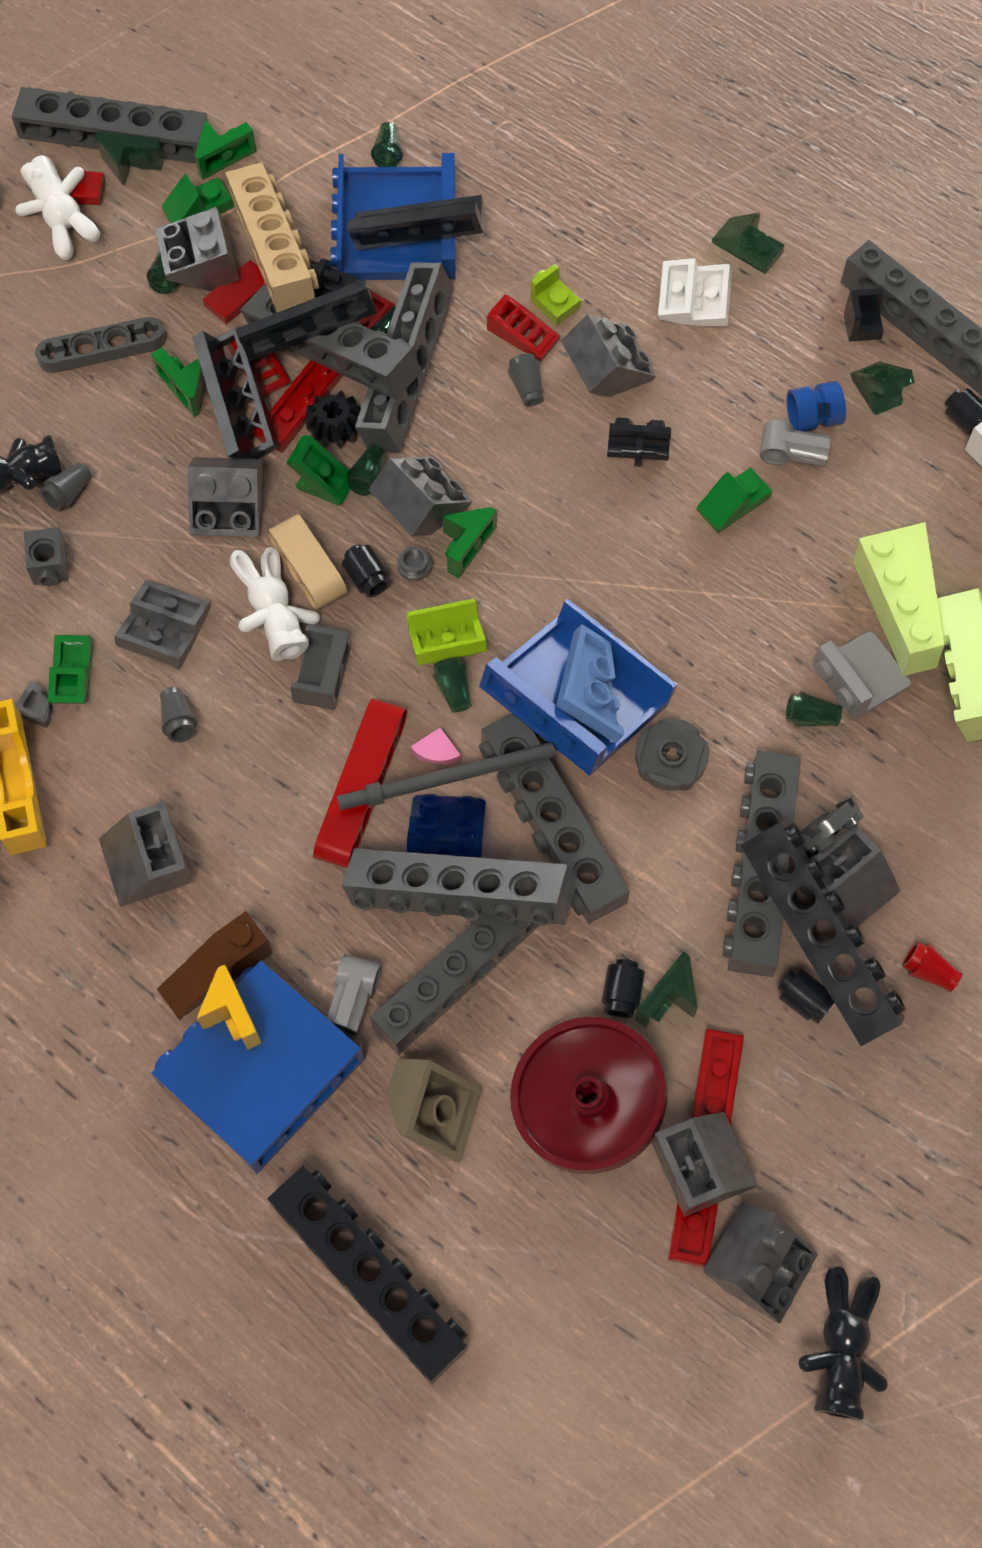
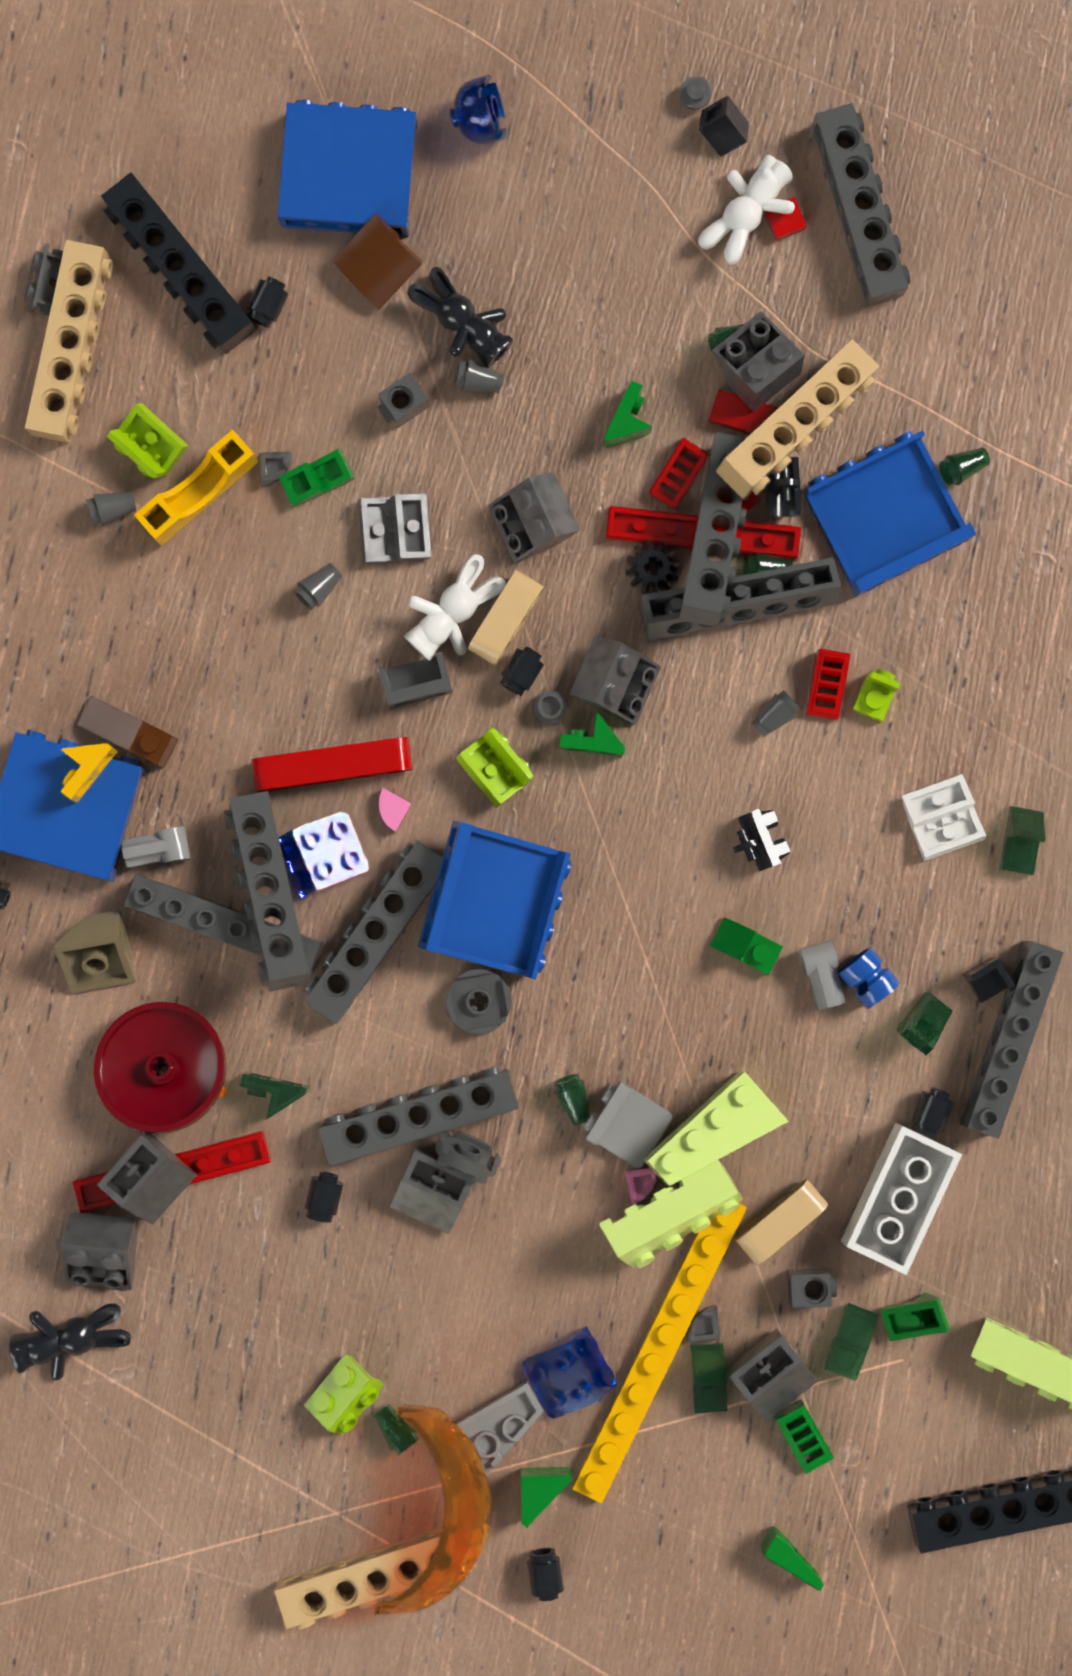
camera: 60 degrees right, 20 degrees up
(101, 349) = (633, 324): dark grey beam -> none
(123, 151) = (835, 231): clear green slope -> none
(144, 855) = (186, 630): flat silver slope -> none
(189, 200) = (816, 327): green slope -> none
(222, 151) = (875, 315): green slope -> none
(224, 396) = (625, 469): black fence -> none
(306, 320) = (714, 505): black fence -> none
(319, 471) = (594, 585): green slope -> none
(366, 470) = (618, 622): clear green cone -> none
(375, 794) = (318, 786): dark grey bar -> none
(417, 222) = (876, 543): black fence -> none
(453, 683) = (454, 795): clear green cone -> none
(587, 684) = (491, 909): medium blue wing -> none
(607, 356) = (833, 773): flat silver slope -> none
(622, 988) = (260, 1053): black brick -> none
(865, 1021) = (357, 1212): black brick -> none
(926, 692) = (640, 1183): none -> bright pink tile
(930, 966) = (395, 1283): red cone -> none

